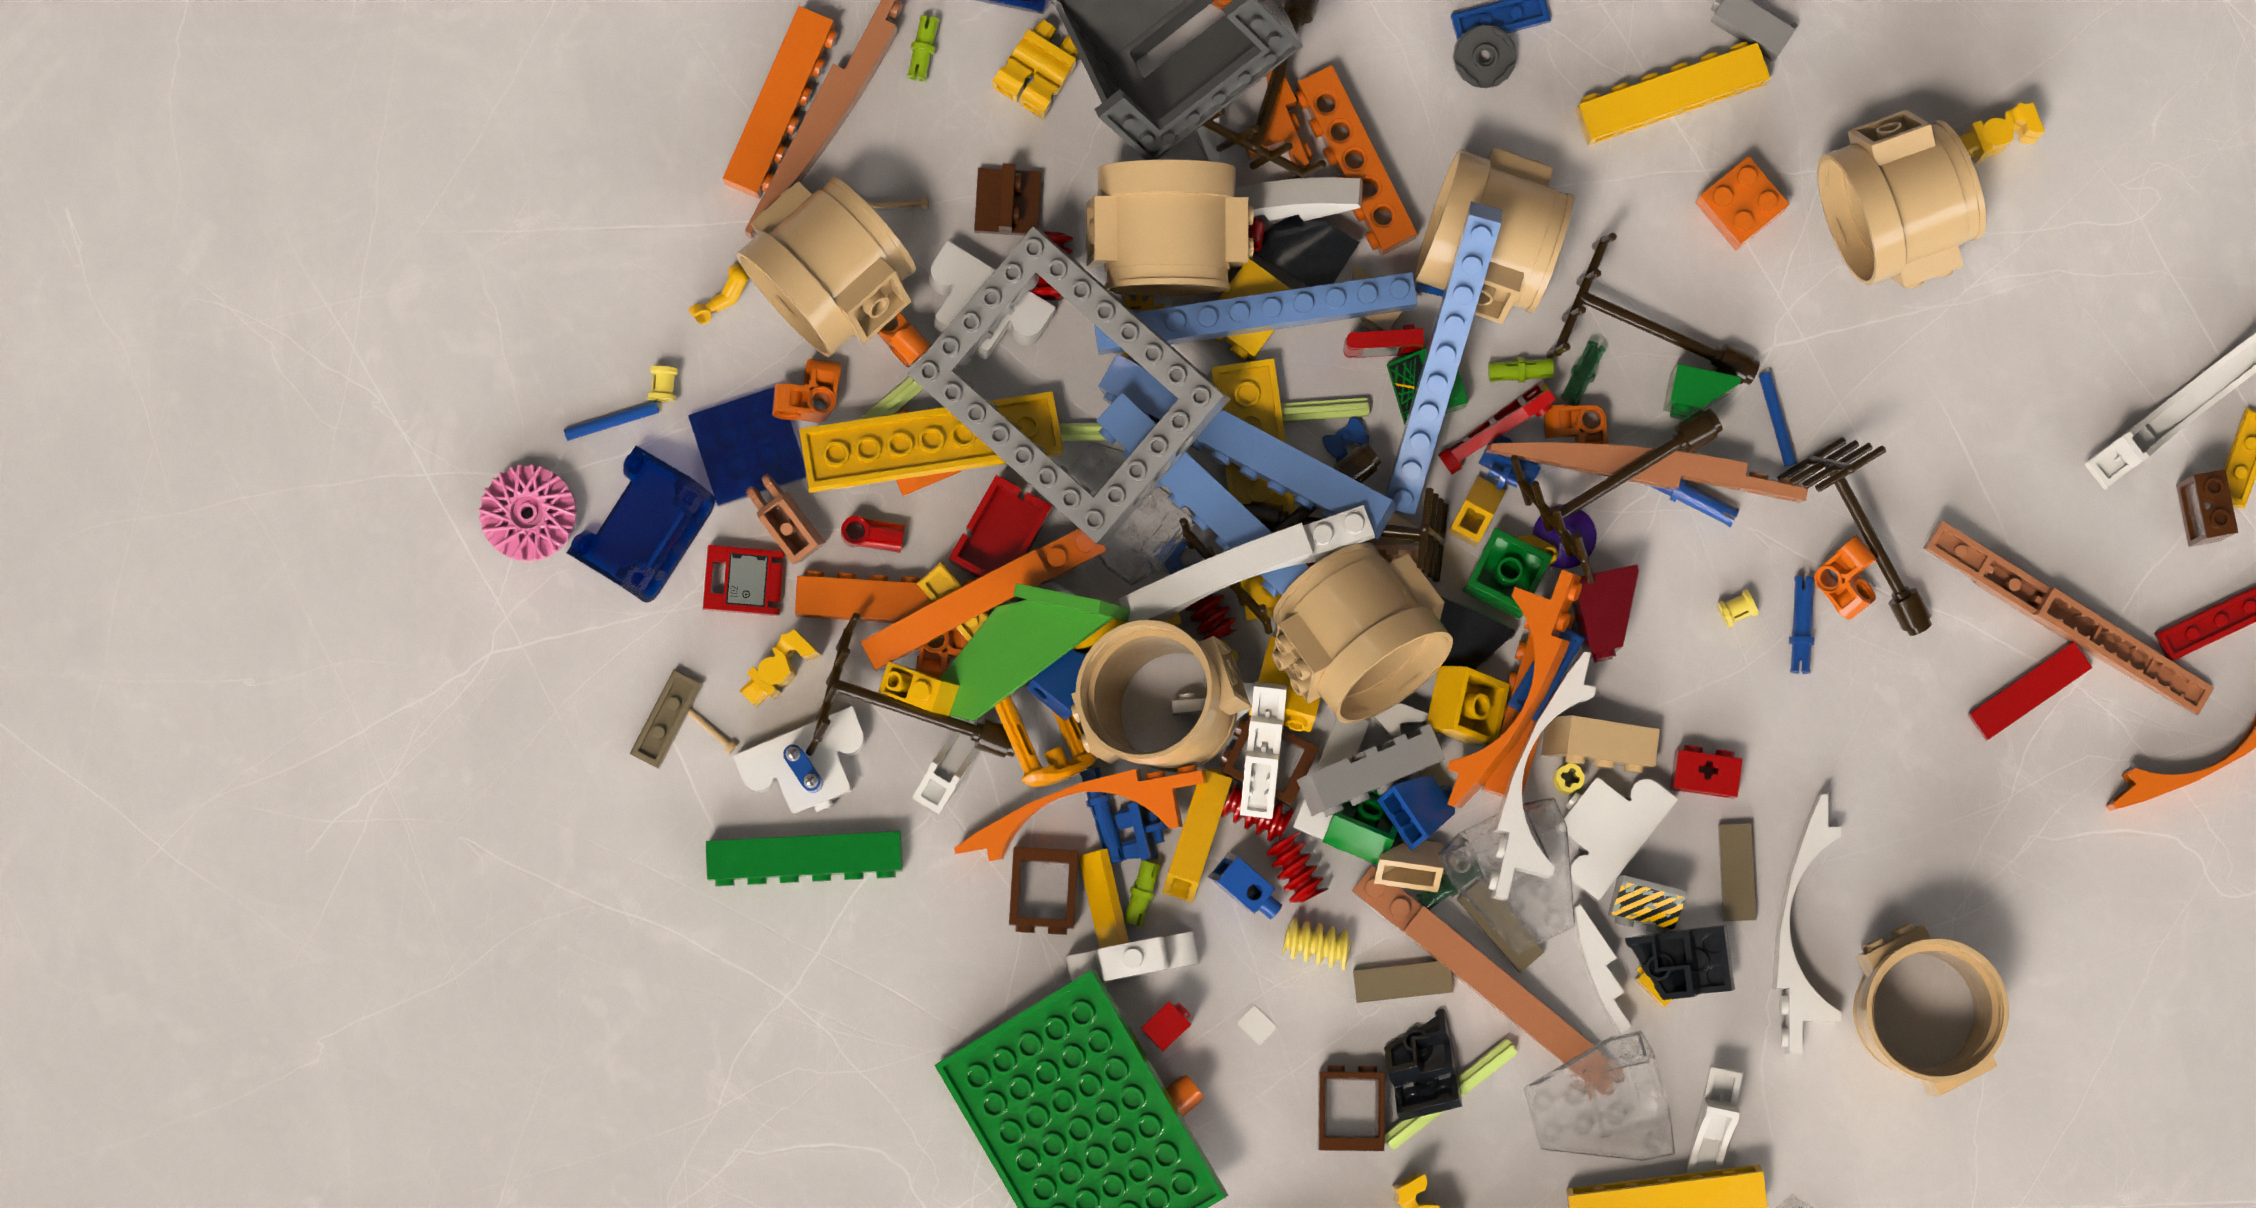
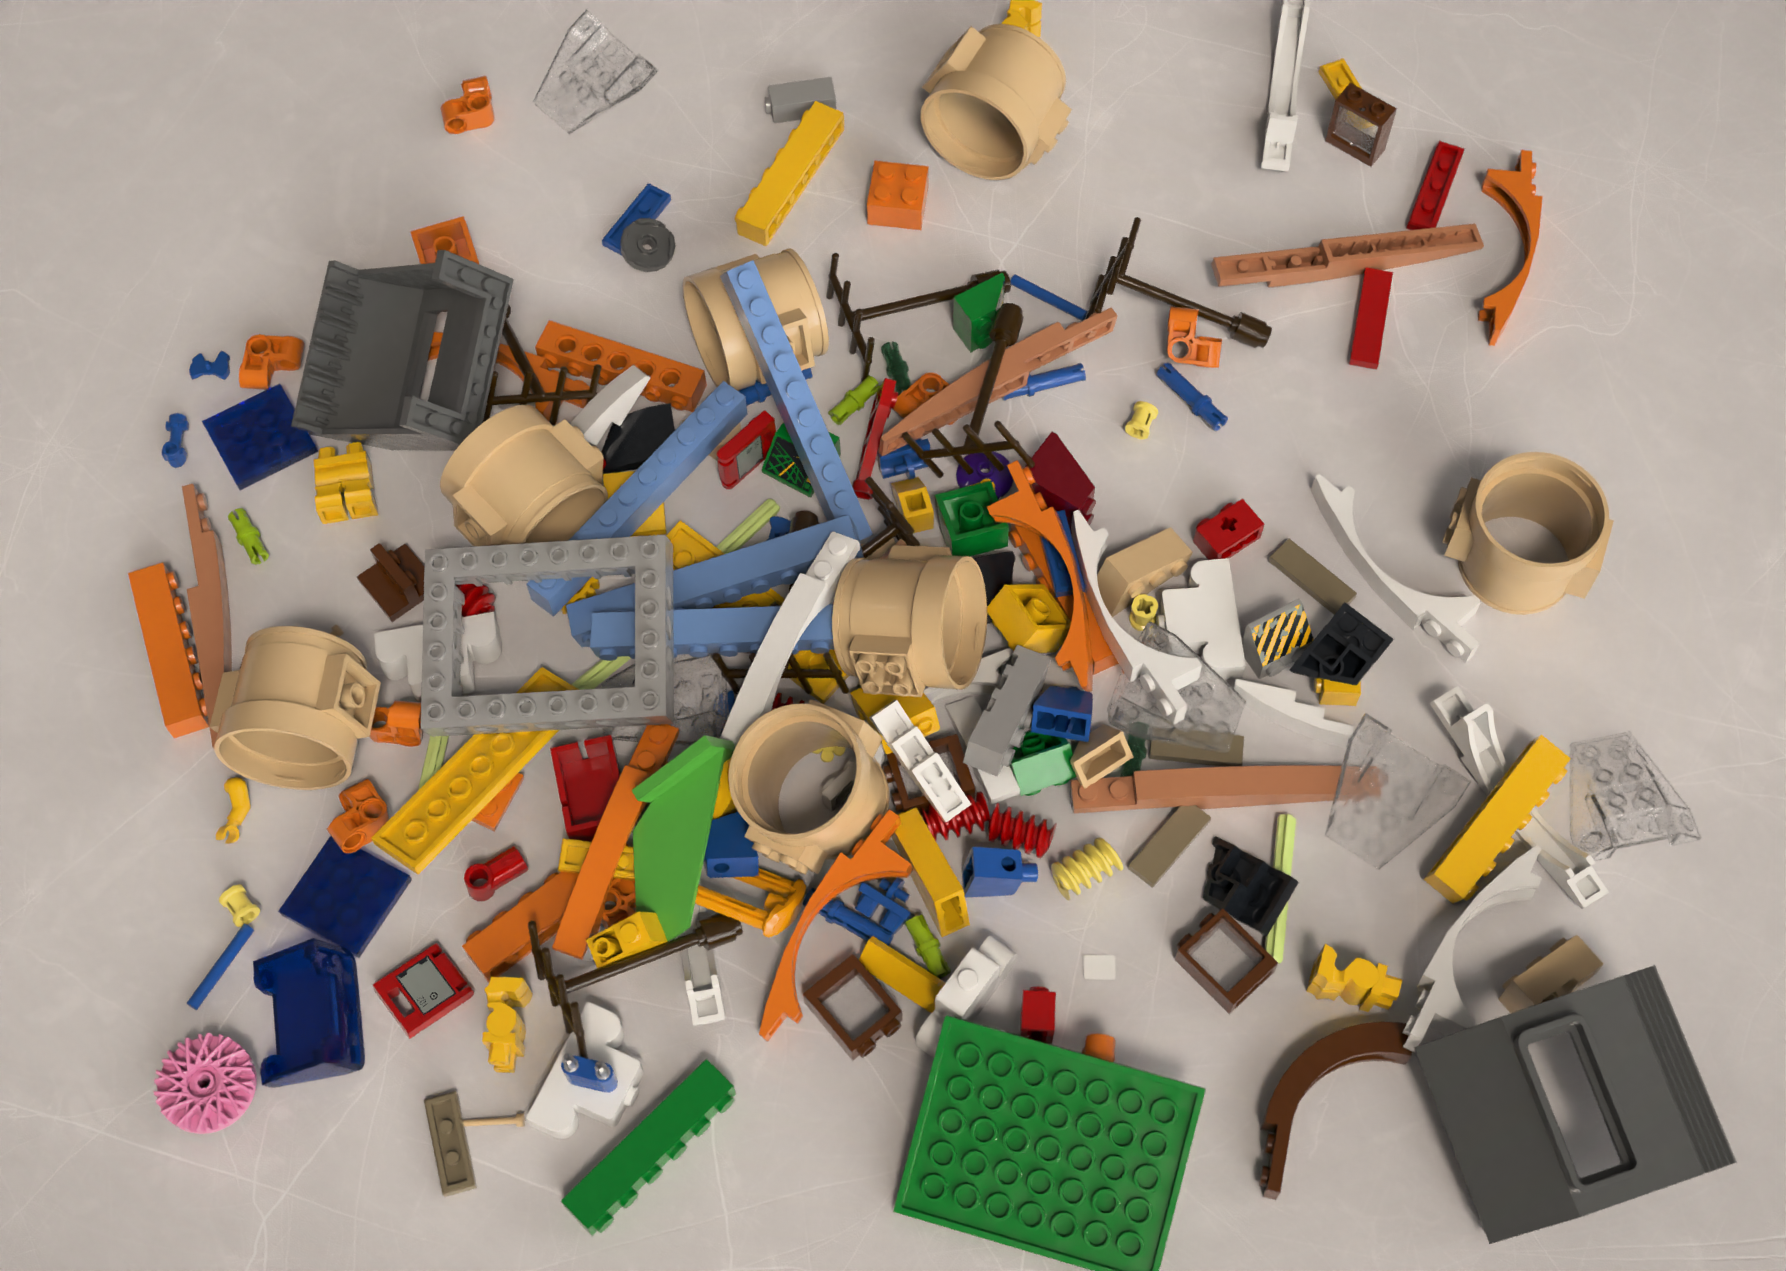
camera: 40 degrees left, 20 degrees down
(786, 522) = (421, 917): nougat hinge -> none

